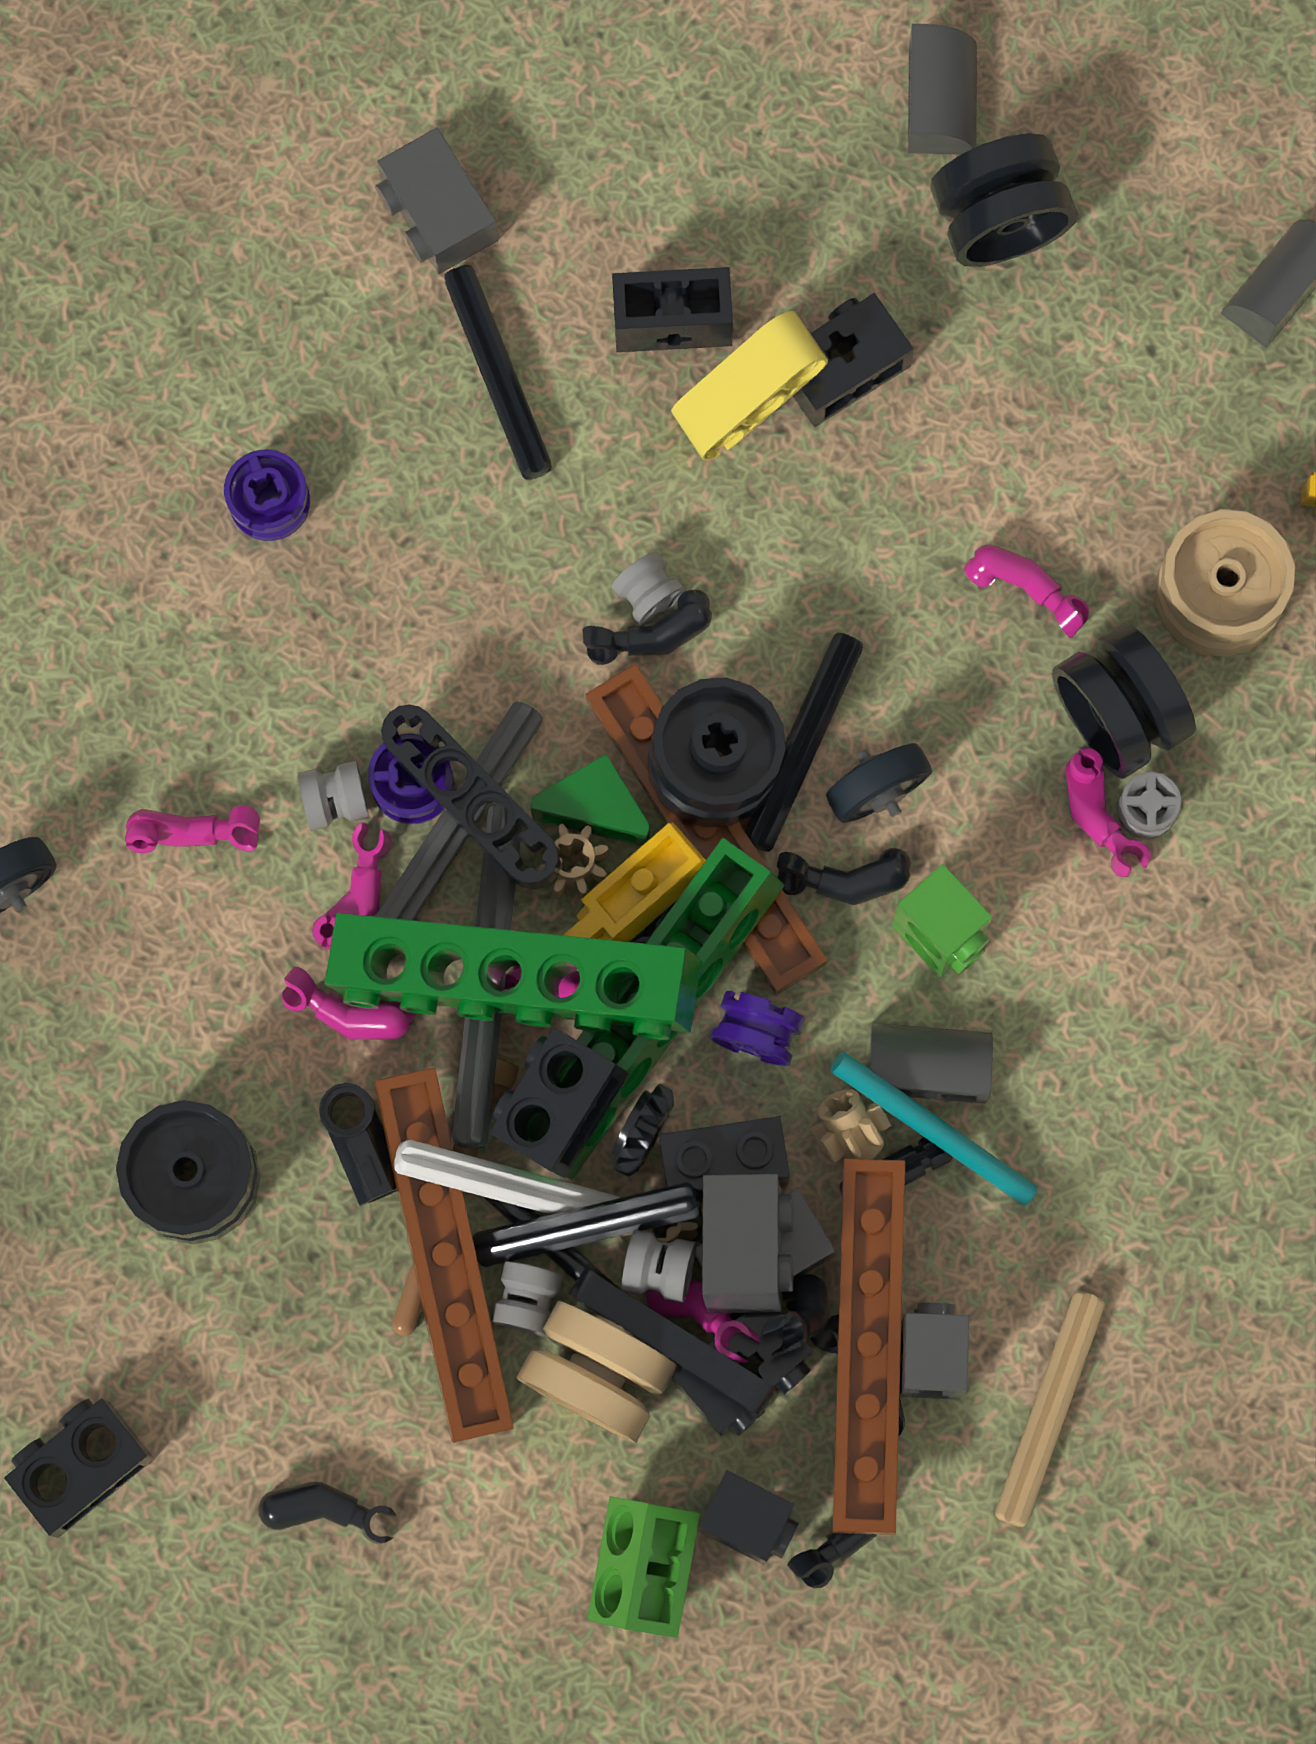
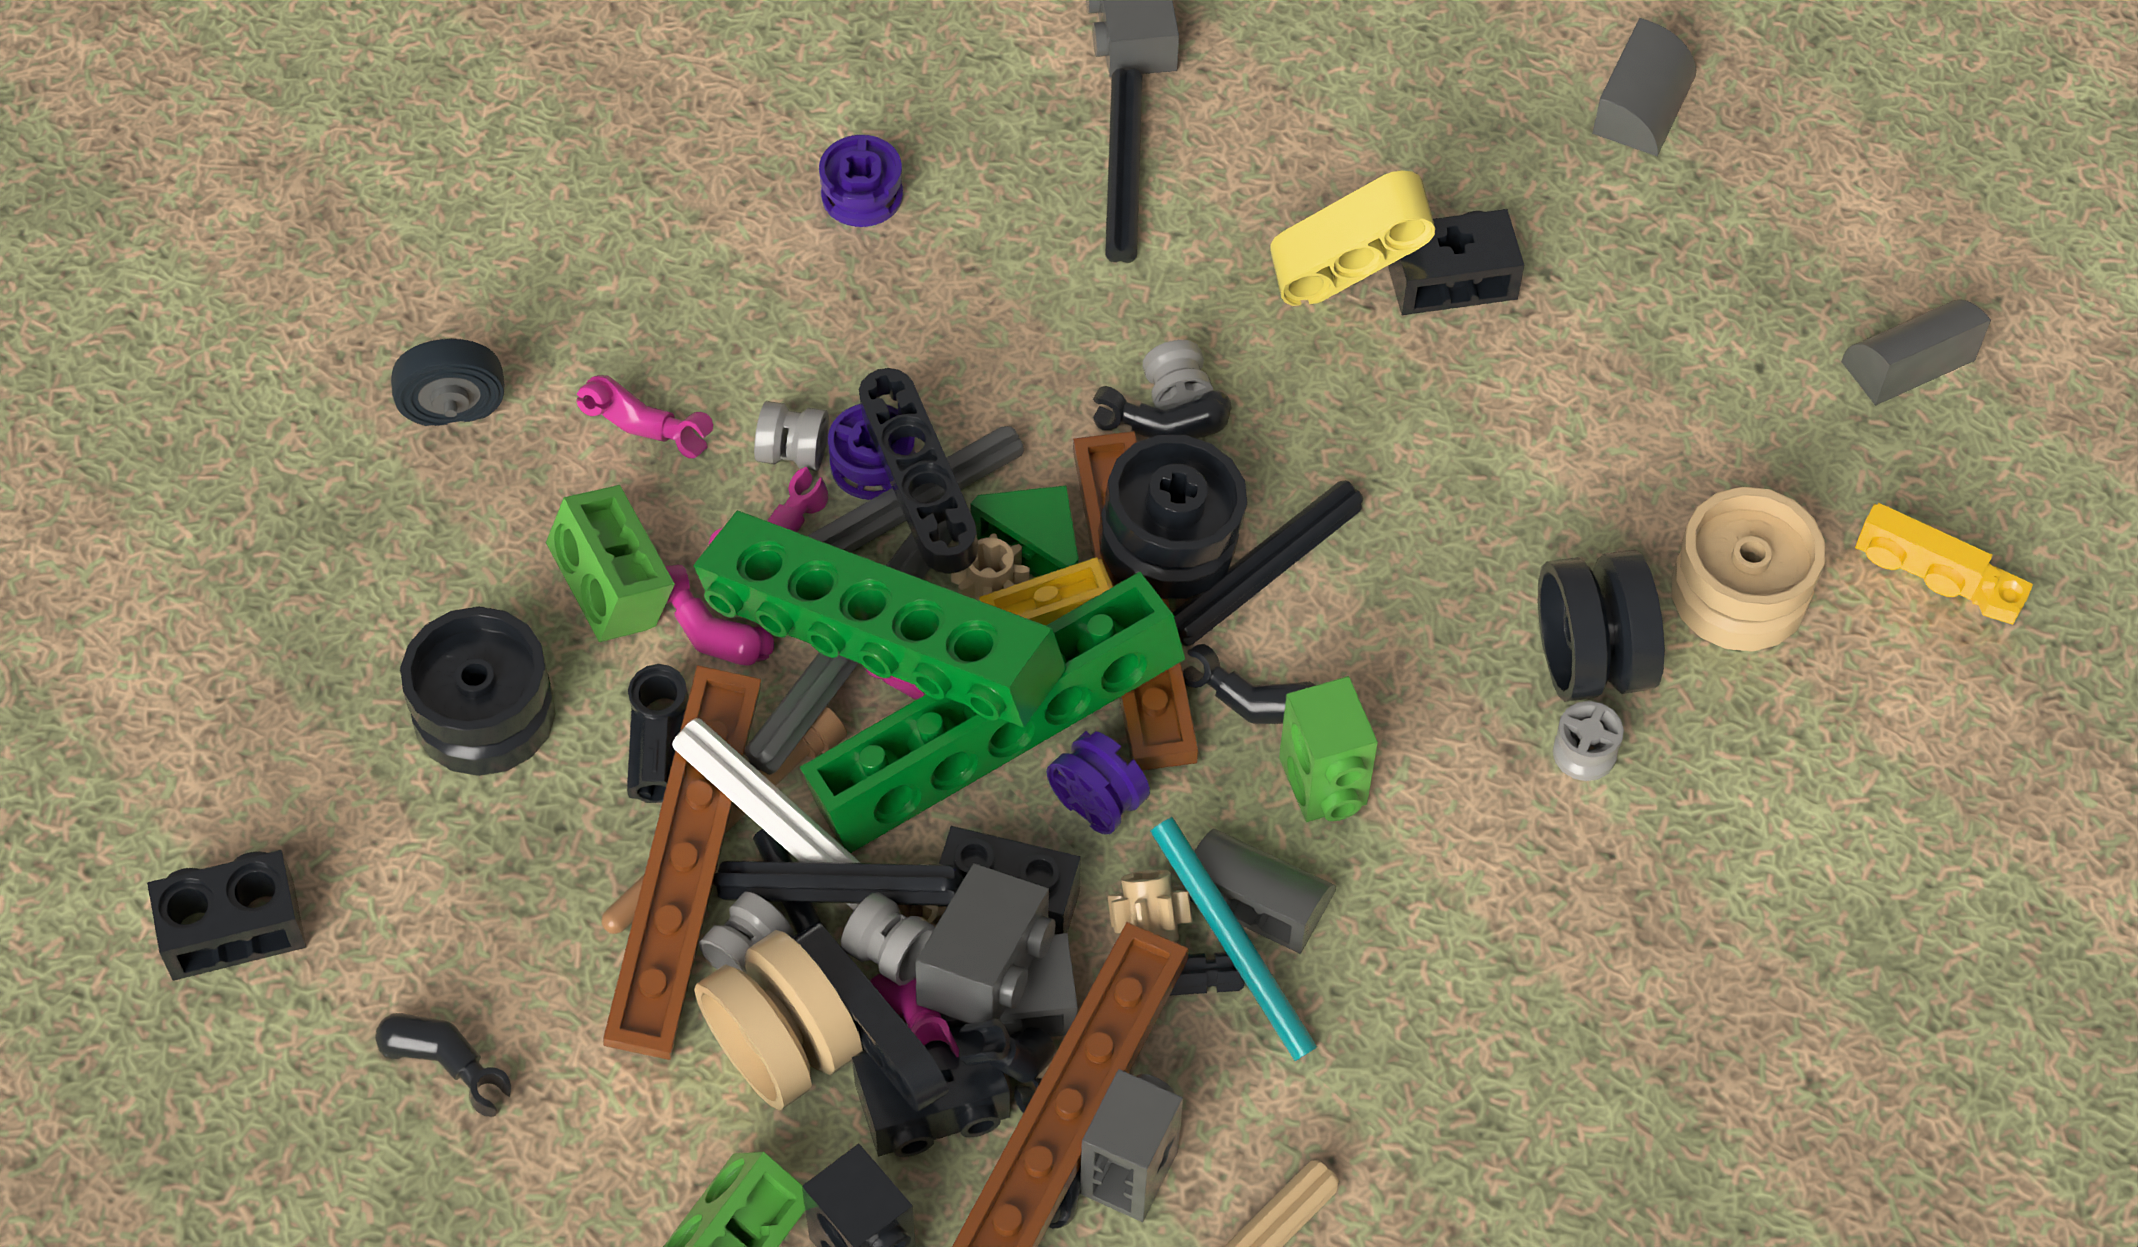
camera: 20 degrees right, 20 degrees down
(239, 999) = (609, 563): none -> bright green brick
(572, 1110) = (863, 740): black brick -> none
(642, 1129) = (927, 824): black gear -> none
(672, 309) = (1306, 157): black brick -> none
(879, 783) = (1322, 611): black wheel -> none
(997, 562) = (1526, 477): dark pink arm -> none
(1003, 199) = (1665, 177): black wheel -> none
(1089, 810) = (1525, 727): dark pink arm -> none

